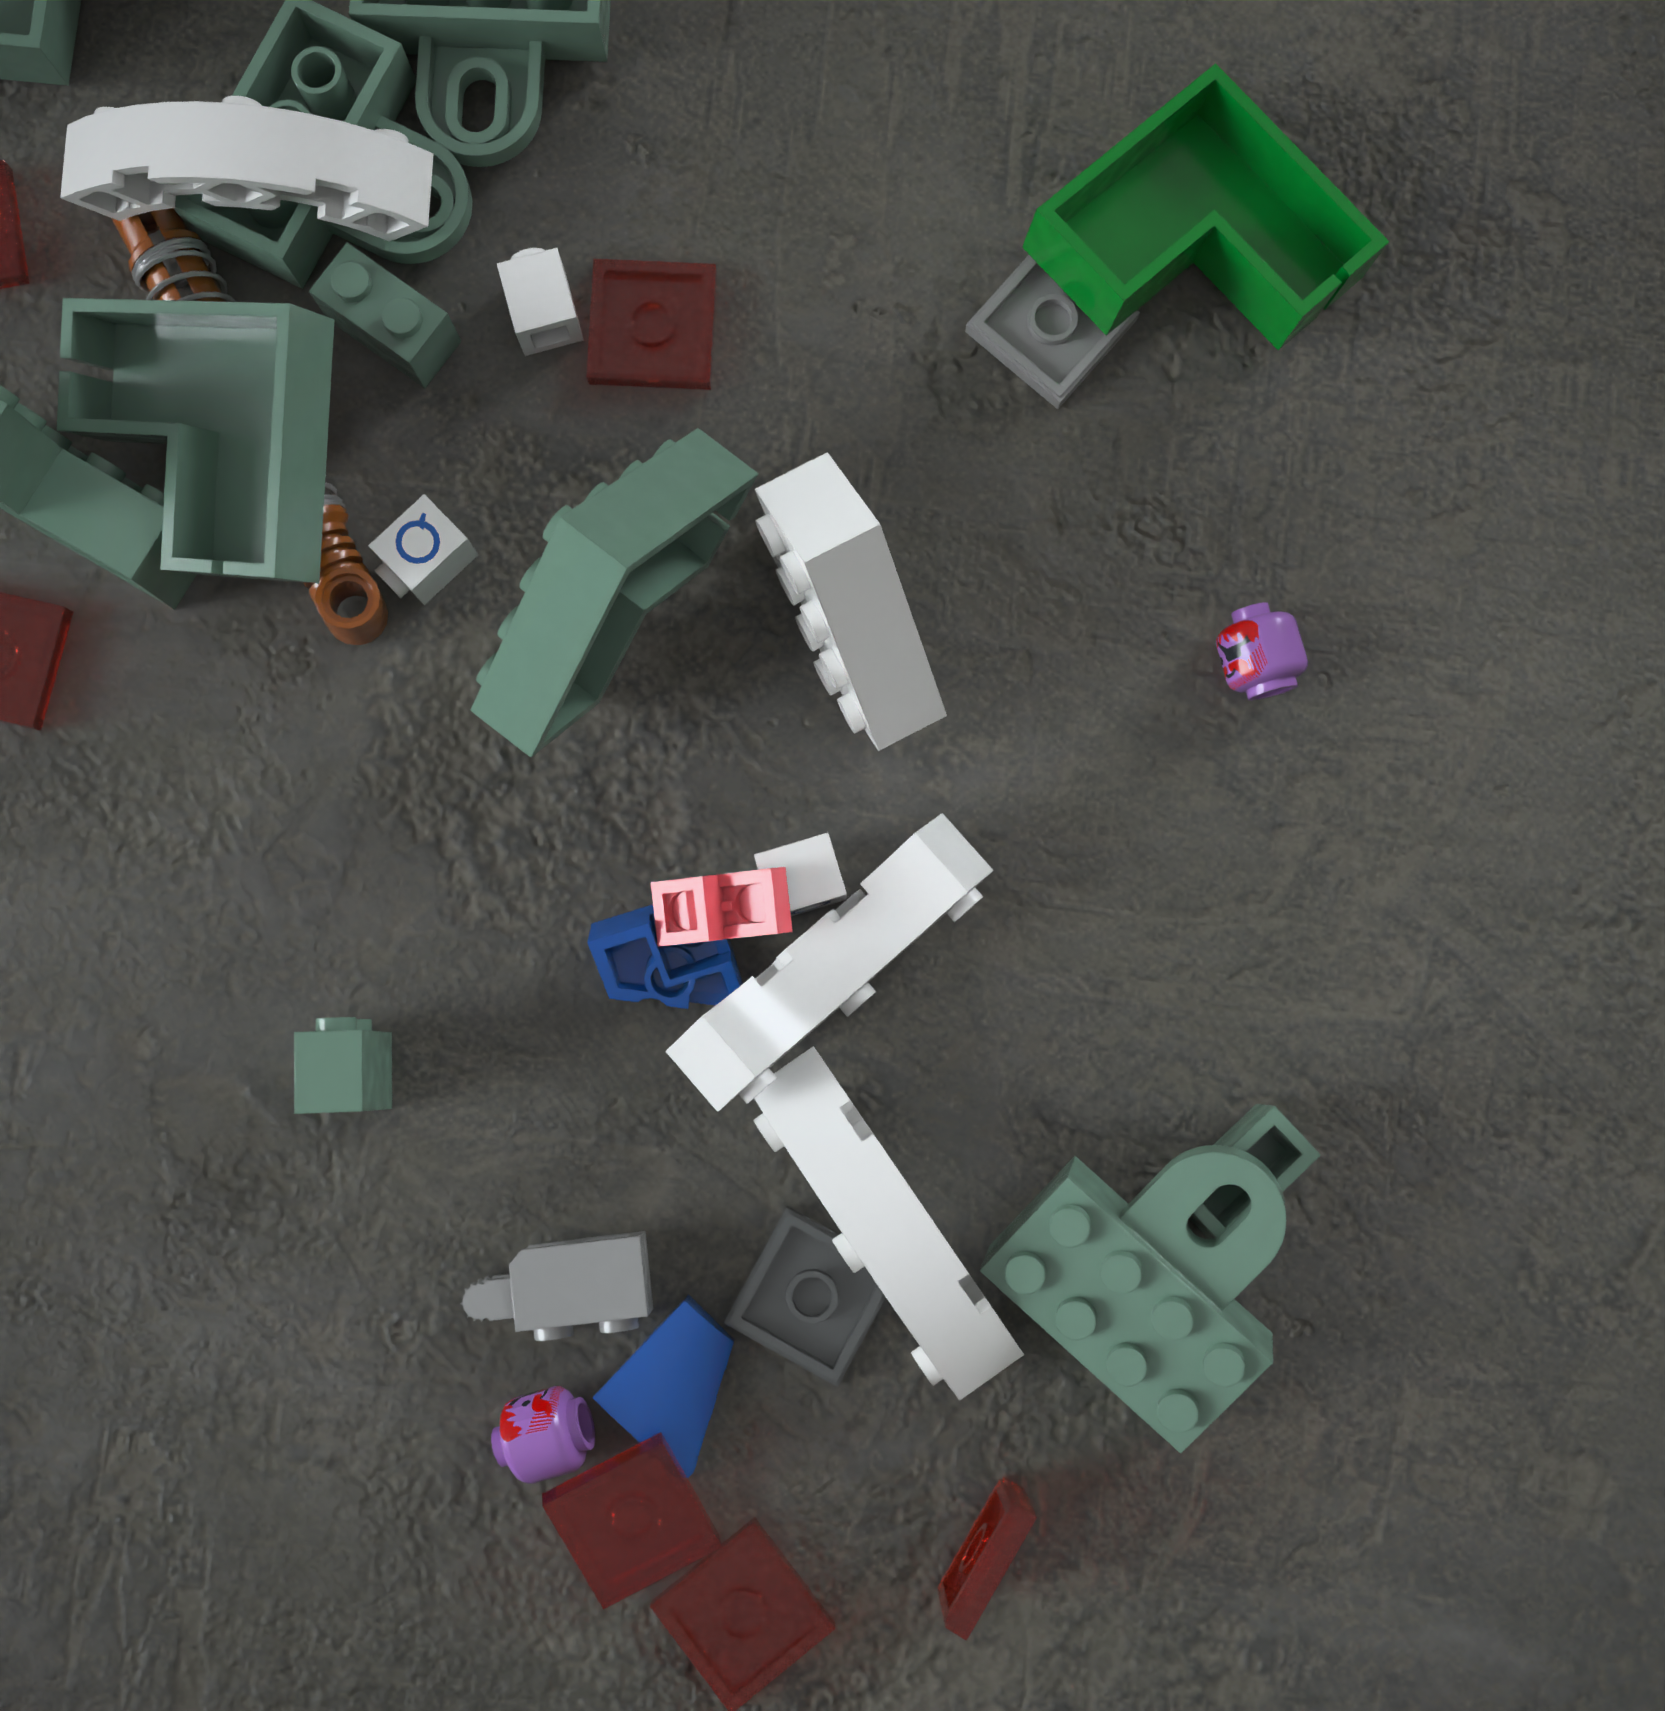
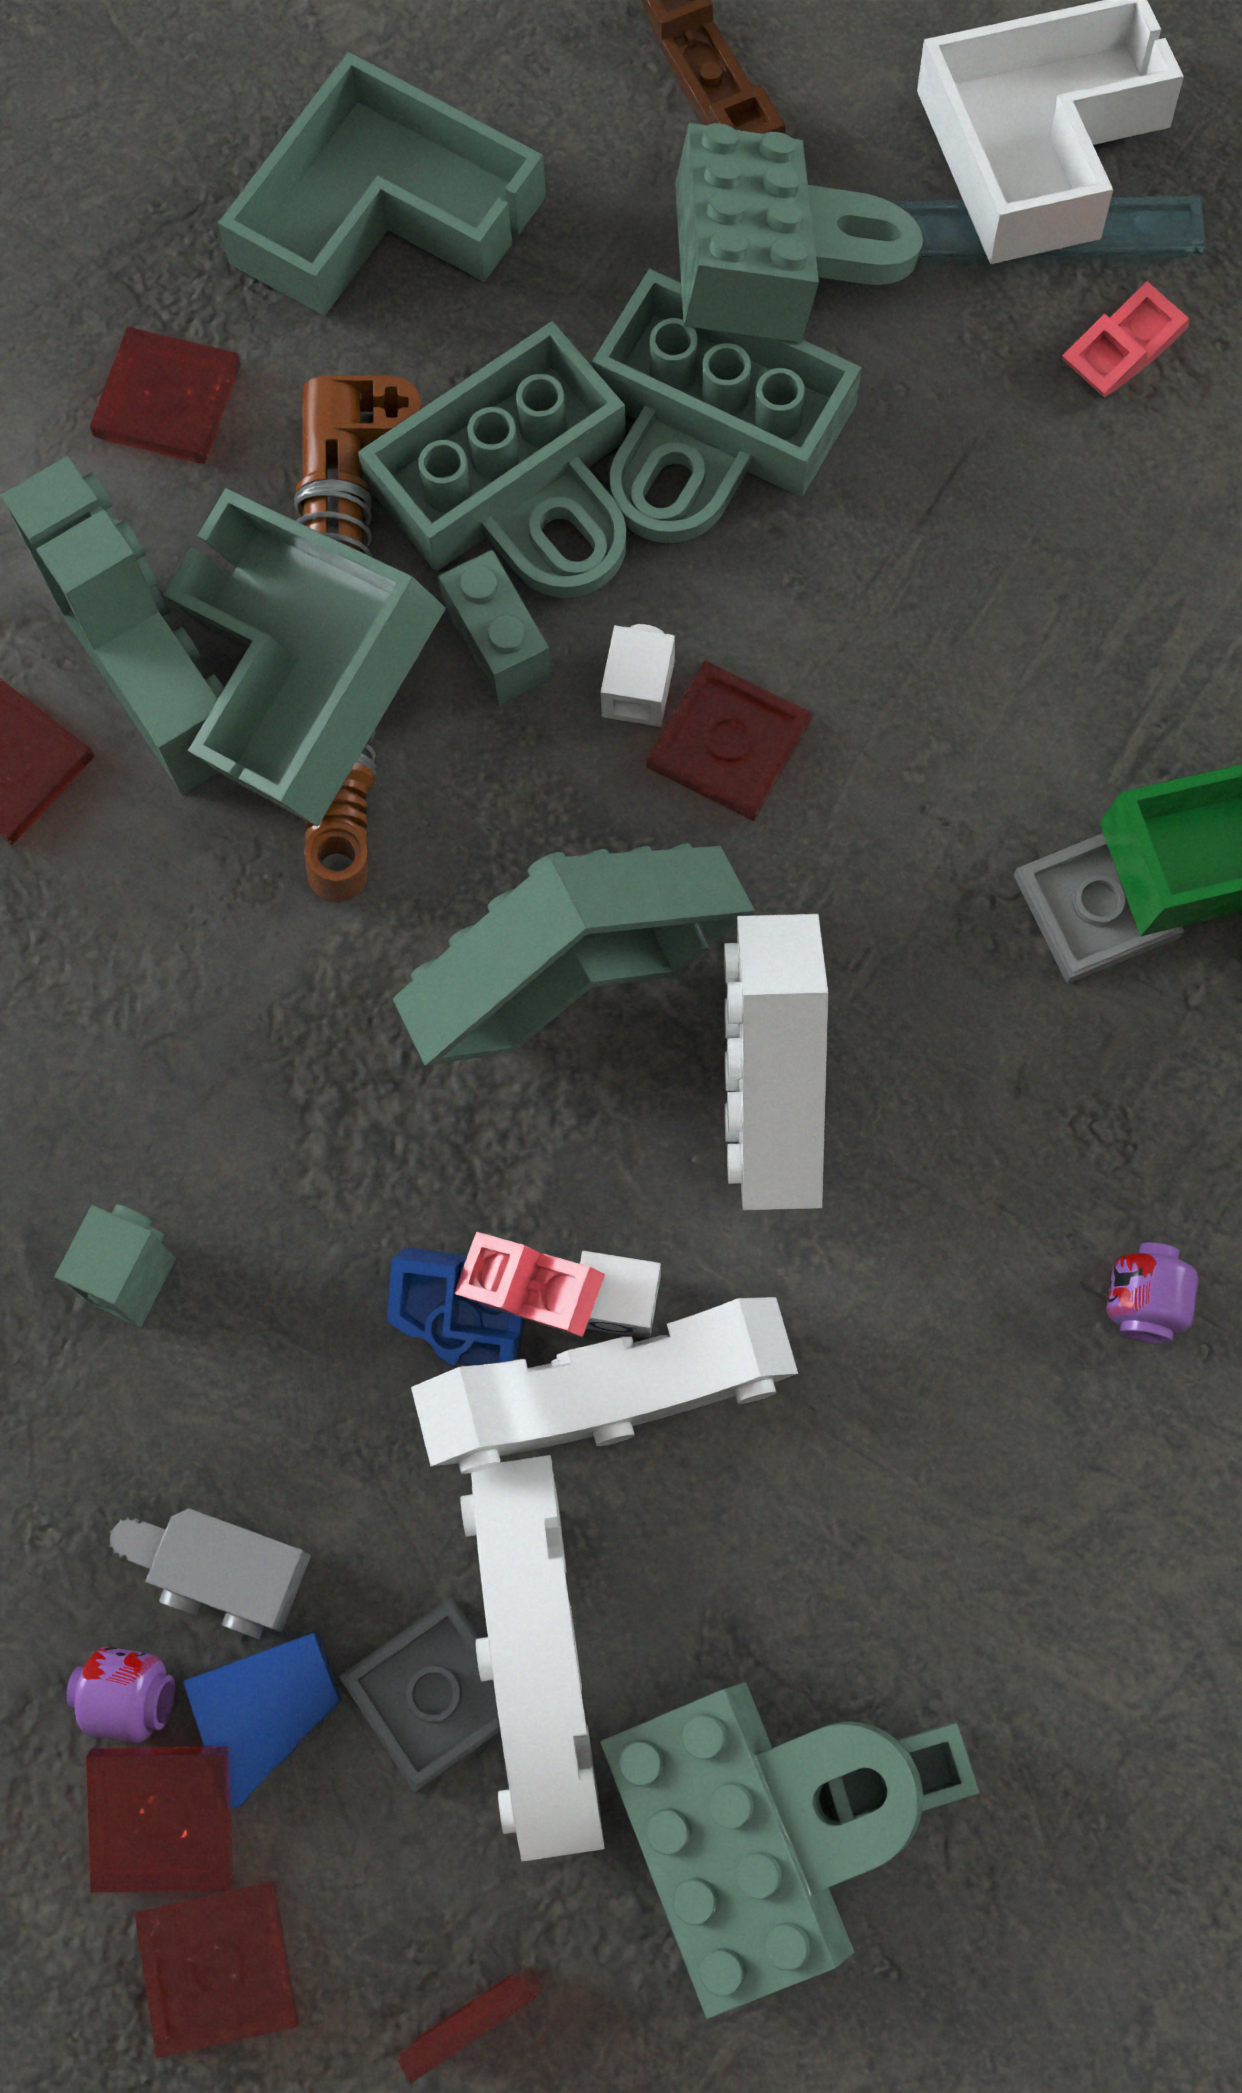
camera: 30 degrees right, 10 degrees down
(246, 158) = (442, 443): white brick -> none
(421, 551) = (422, 843): white brick -> none

